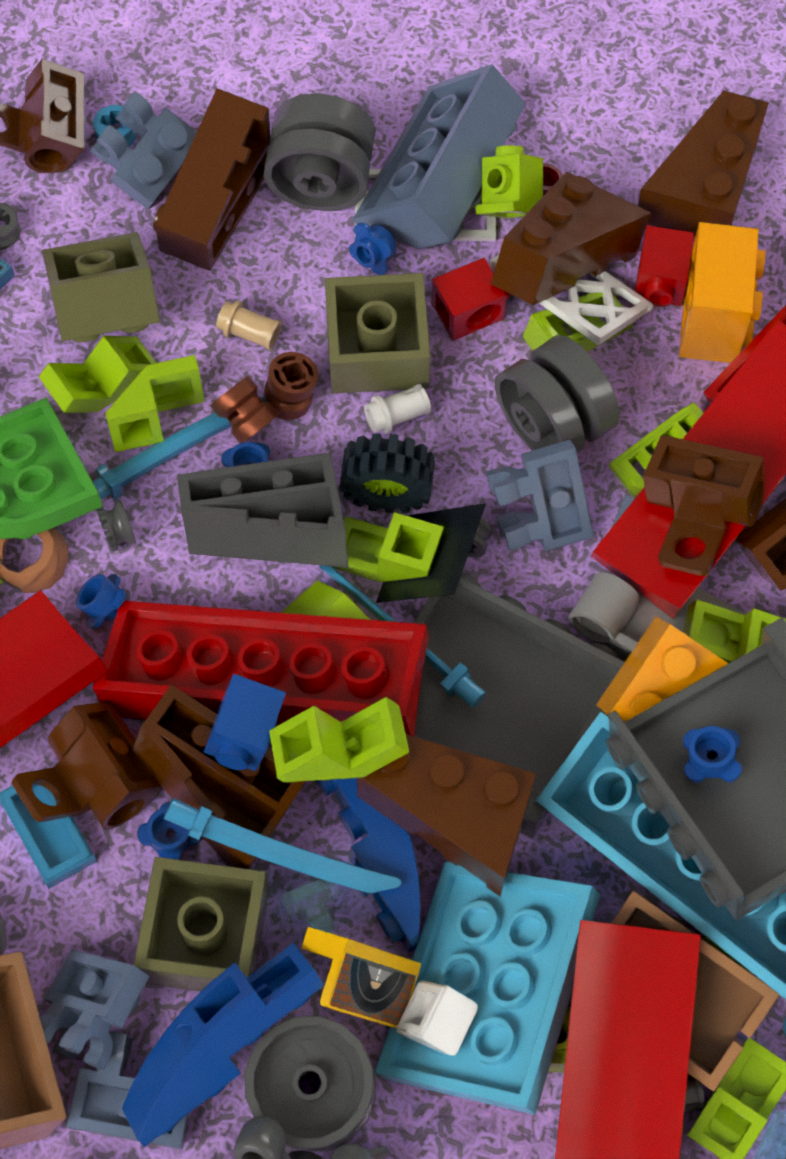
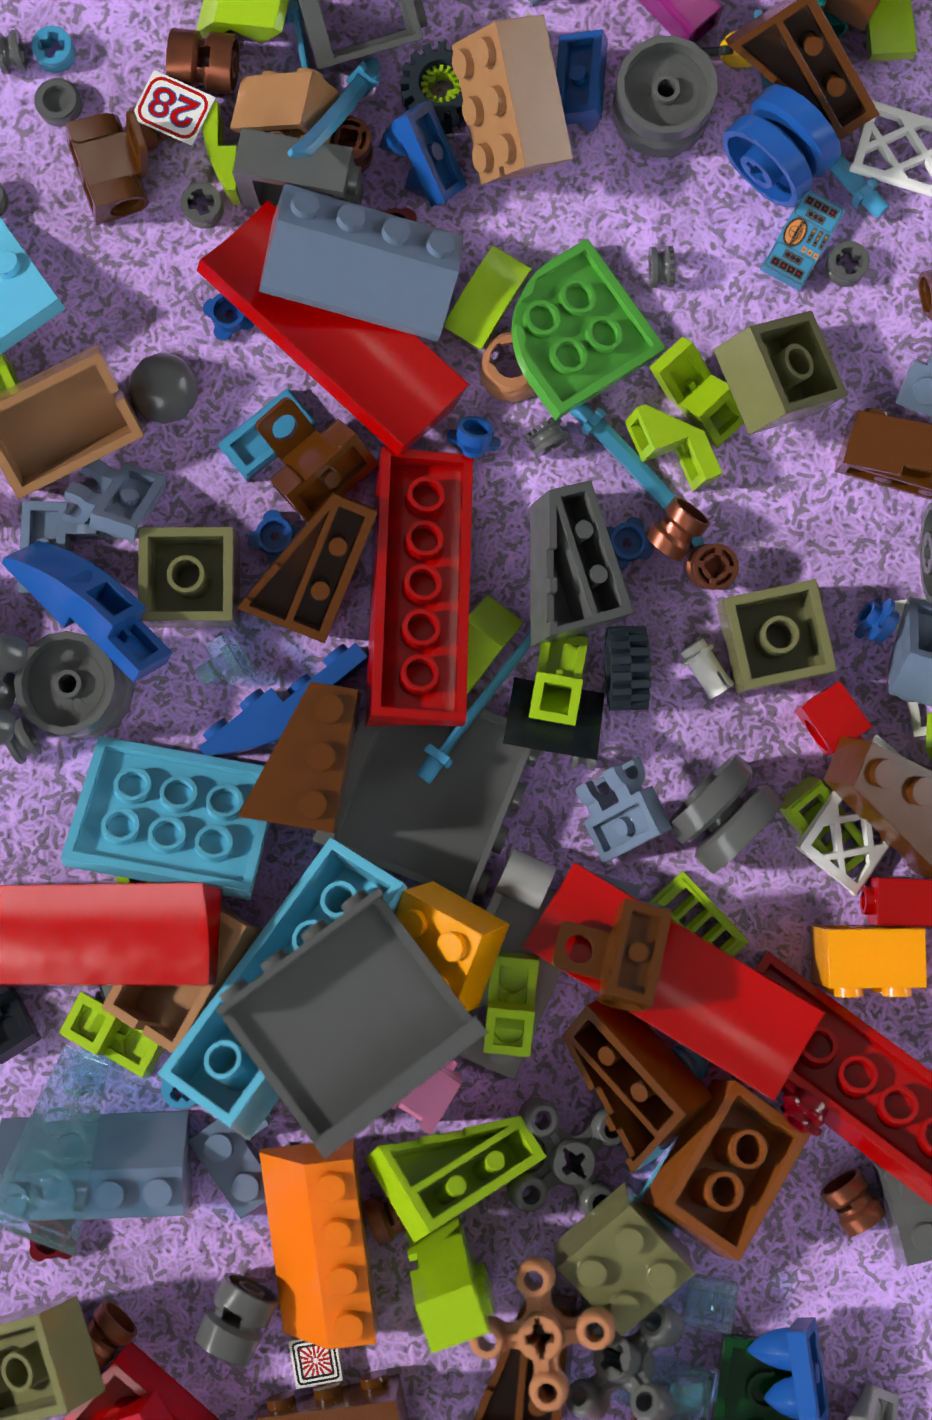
camera: 85 degrees right, 20 degrees up
(201, 823) = (256, 562): dark azure sword -> none
(243, 723) = (344, 579): blue brick -> none
(248, 325) = (774, 517): tan pin -> none
(323, 748) = (327, 661): lime slope -> none
(363, 978) = (163, 716): panel -> none
(437, 1017) = (138, 778): white slope -> none
(717, 740) = (351, 993): blue plate -> none

